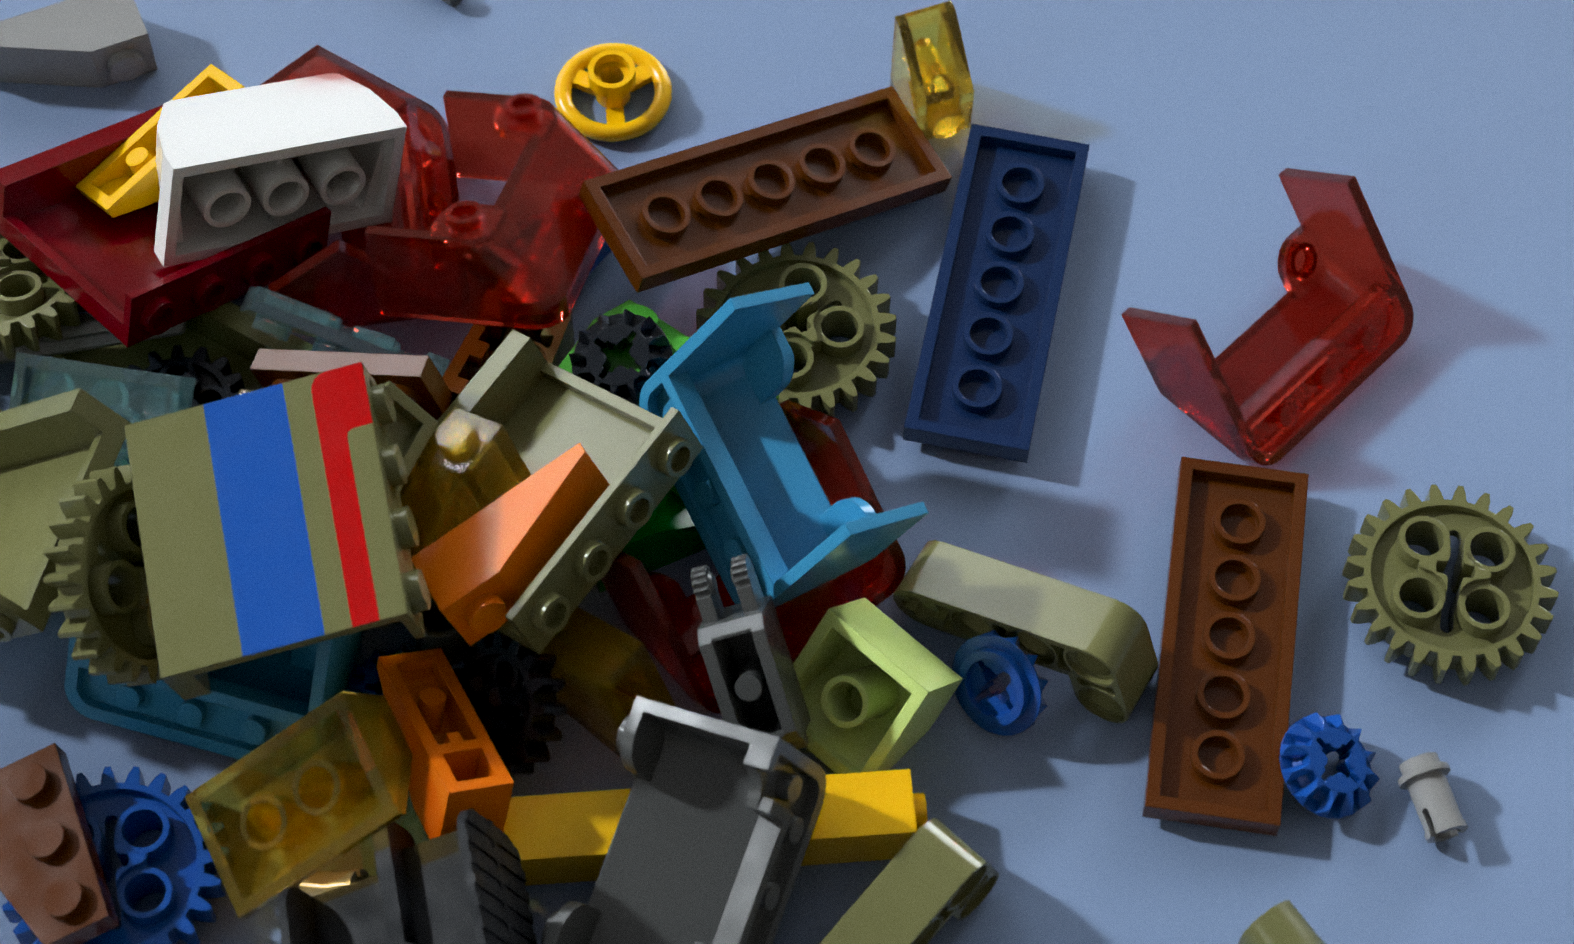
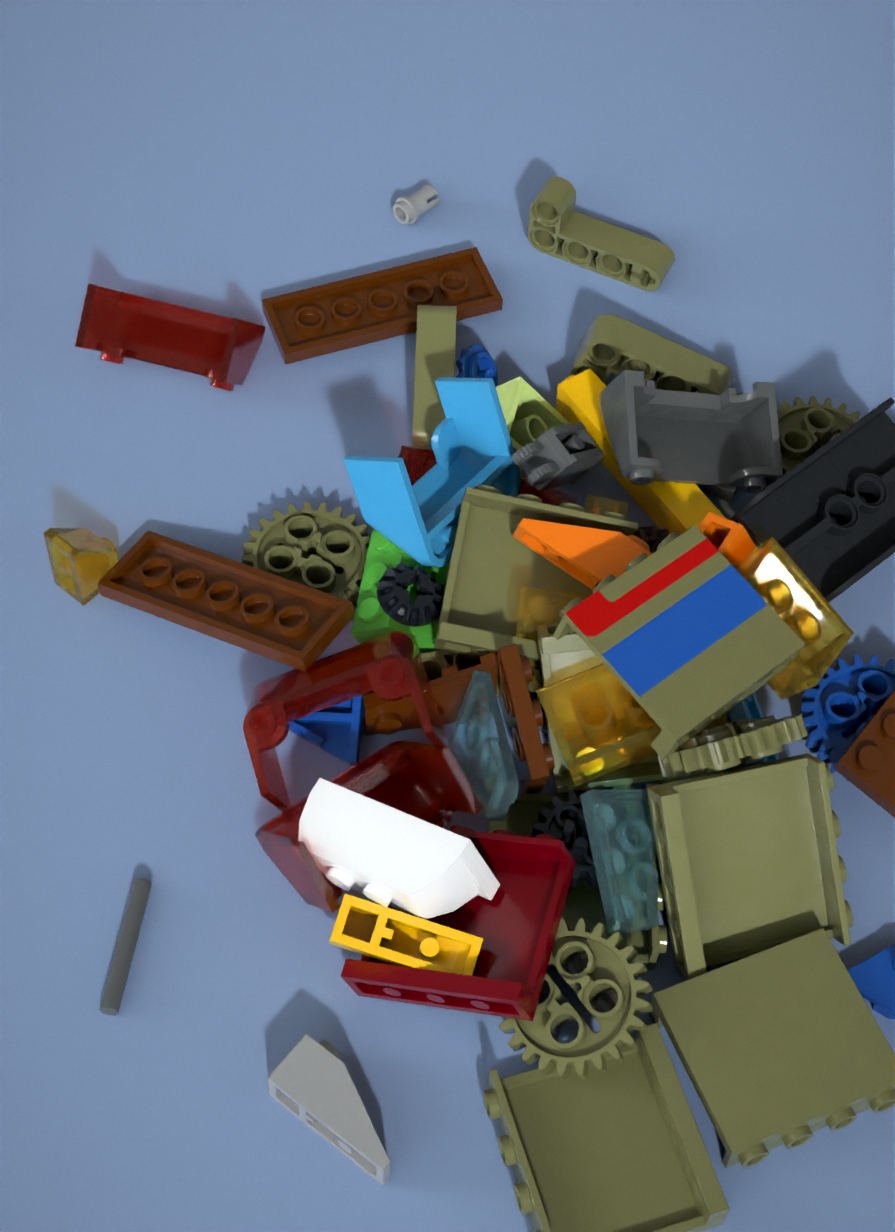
camera: 120 degrees left, 5 degrees down
(612, 80) = (173, 729): yellow piece -> none
(997, 294) = (215, 480): dark blue plate -> none
(1304, 759) = (427, 243): blue gear -> none
(1509, 594) = (290, 230): olive gear -> none

